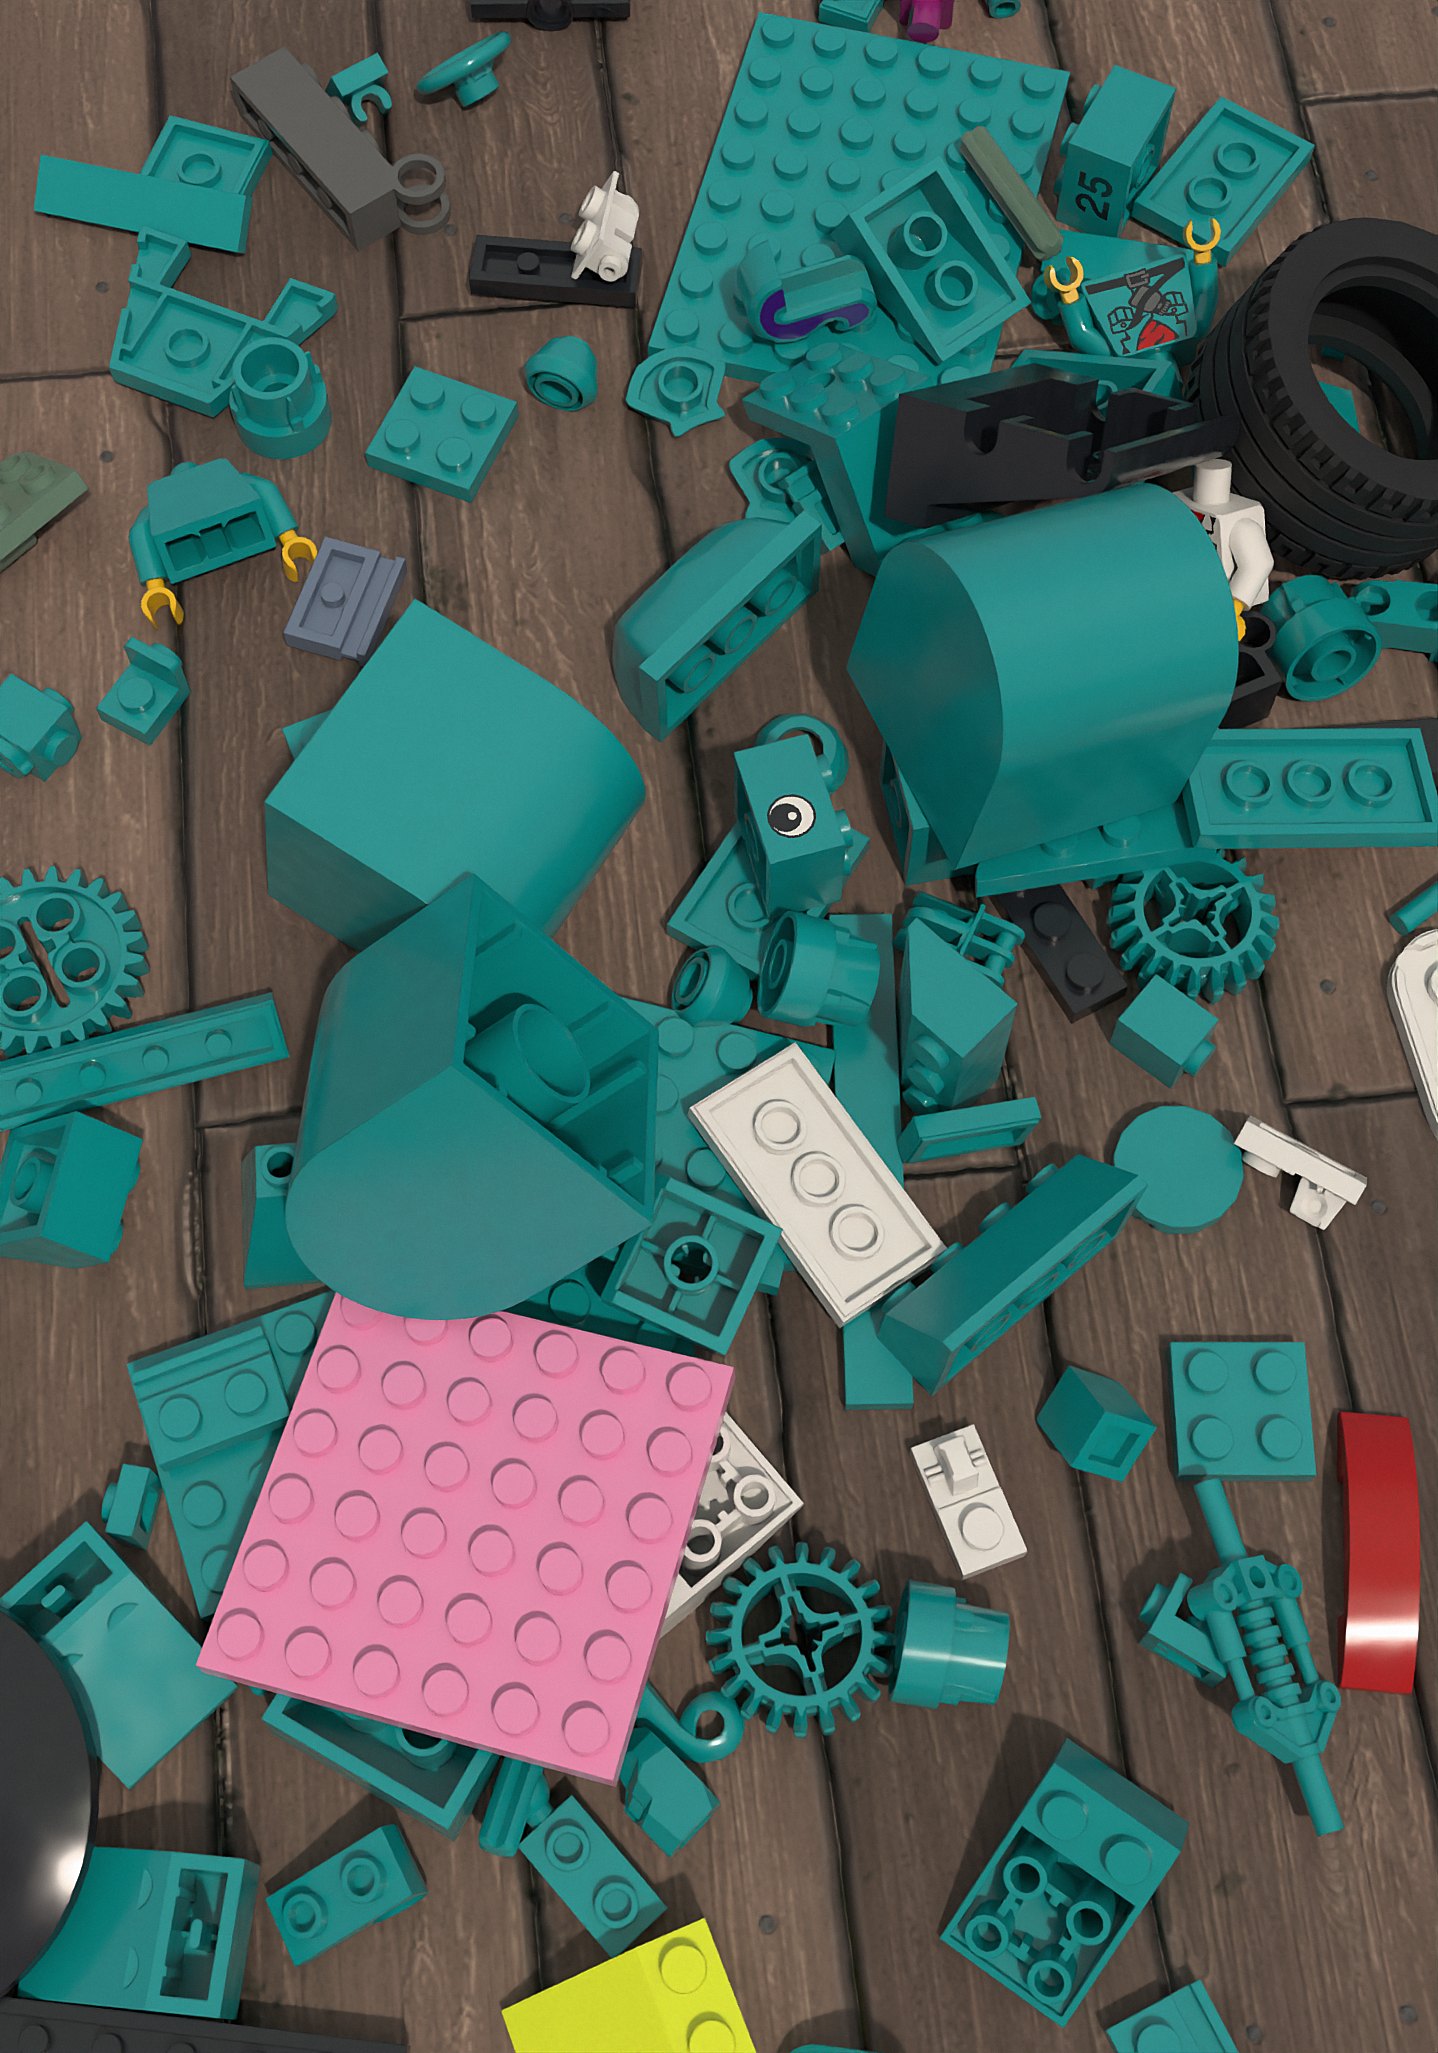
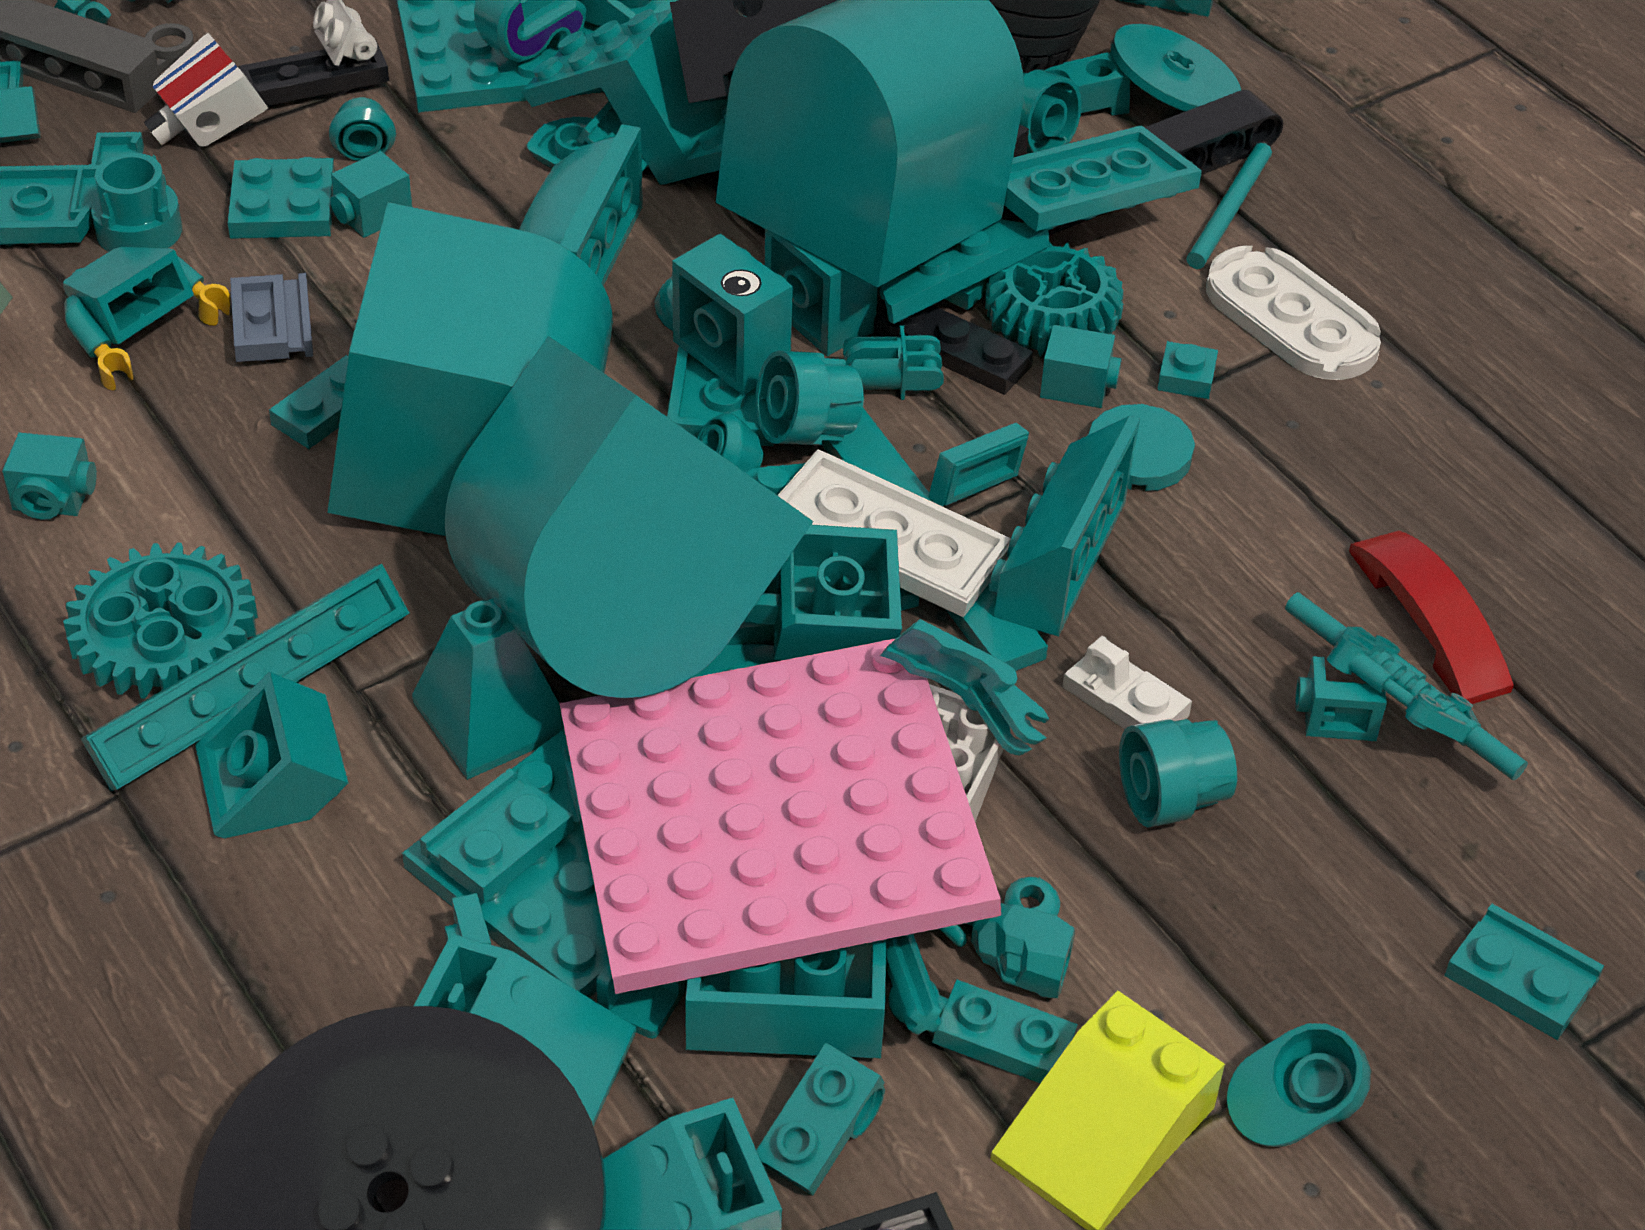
camera: 30 degrees left, 20 degrees down
(145, 692) = (135, 421): teal bracket -> none
(419, 267) = (203, 96): none -> white torso
(526, 472) = (365, 189): none -> teal brick
(678, 388) = (456, 117): teal animal -> none
(768, 1650) = (1065, 831): teal gear -> none
(774, 1491) = (974, 675): none -> teal arm
(948, 1026) = (925, 382): teal slope -> none
(1066, 1882) = (1358, 882): teal slope -> none
(1095, 1424) = (1188, 605): teal panel -> none
(1240, 1411) = (1275, 561): teal plate -> none
(1296, 1081) = (1187, 370): none -> teal plate
(1323, 1183) = (1247, 409): white hinge -> none

